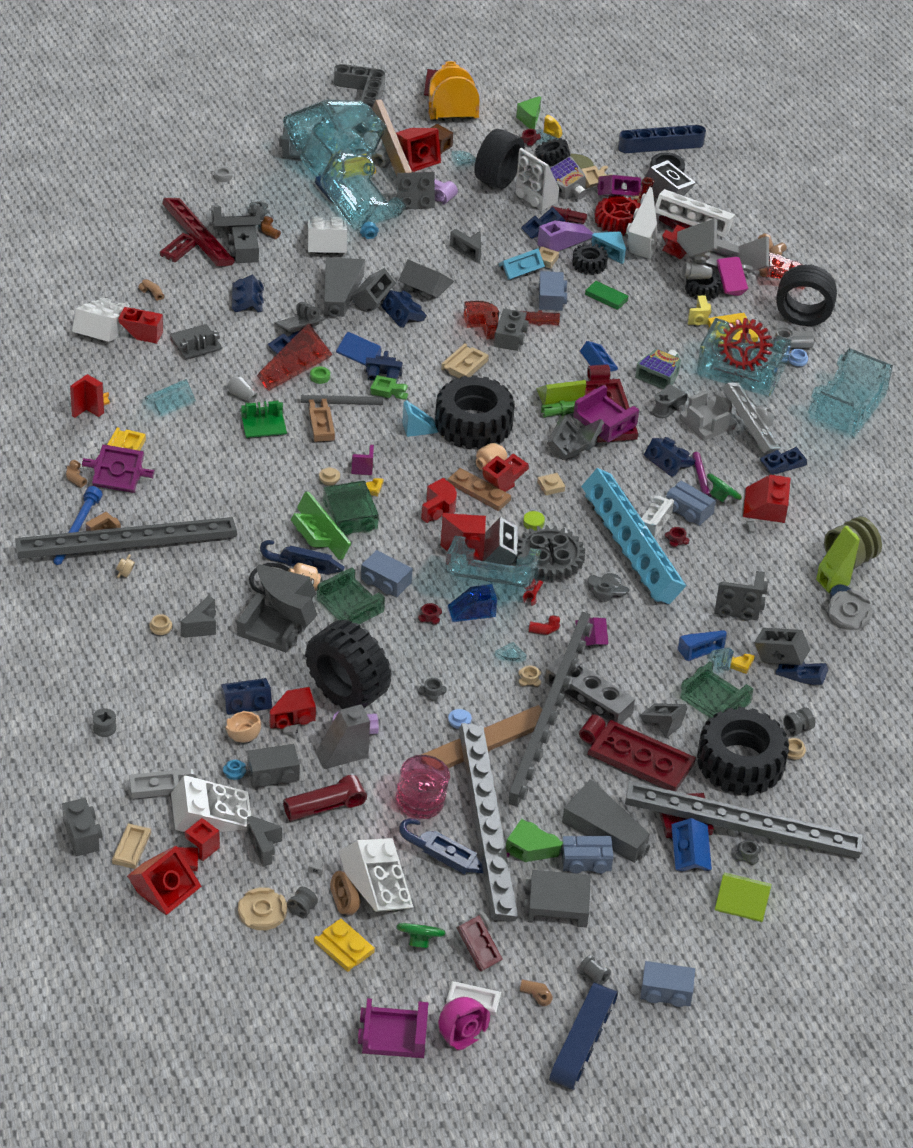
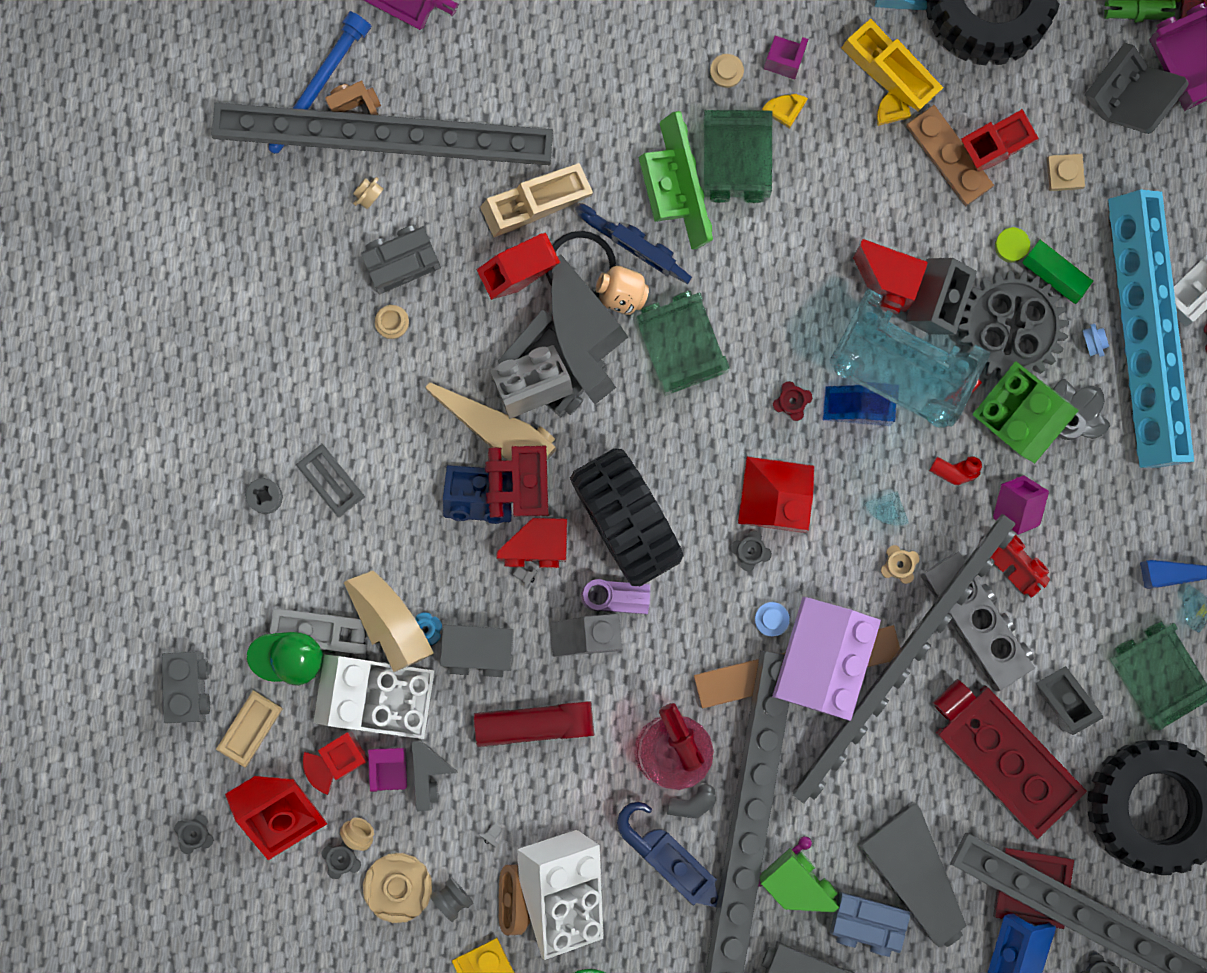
camera: 20 degrees right, 40 degrees up
(110, 903) = (184, 831): none -> dark grey plate
(143, 712) = (348, 503): none -> dark grey tile
(144, 799) = (285, 657): none -> green cap
(157, 593) = (400, 259): none -> dark grey brick
(200, 620) = (441, 335): dark grey slope -> none
(211, 765) = (388, 621): none -> tan slope
(218, 894) = (336, 868): none -> dark grey plate
(225, 881) = (357, 834): none -> tan plate
(231, 552) = (535, 199): none -> tan slope
(233, 842) = (387, 769): none -> magenta panel
(234, 575) = (518, 266): none -> red slope
(243, 726) = (467, 554): light nougat hair -> none
(245, 659) = (491, 425): none -> tan slope
(264, 620) = (531, 381): none -> light grey slope
(278, 667) = (528, 478): none -> dark red plate
(386, 573) = (749, 308): sand blue brick -> none
(424, 762) = (681, 738): none -> dark red axle
(426, 452) = (891, 65): none -> yellow slope
(436, 473) = (892, 110): none -> yellow tile
(439, 661) = (777, 495): none -> red slope
(440, 499) = (887, 173): red brick -> none
(448, 821) = (696, 806): none -> dark grey arm
(488, 452) = (987, 100): light nougat head -> none
(502, 717) = (826, 658): none -> lavender slope
(568, 525) = (1057, 271): none -> green tile
(575, 584) = (1025, 412): none -> bright green slope
(602, 550) = (1096, 340): none -> light blue plate
(610, 663) = (1027, 572): none -> red hinge

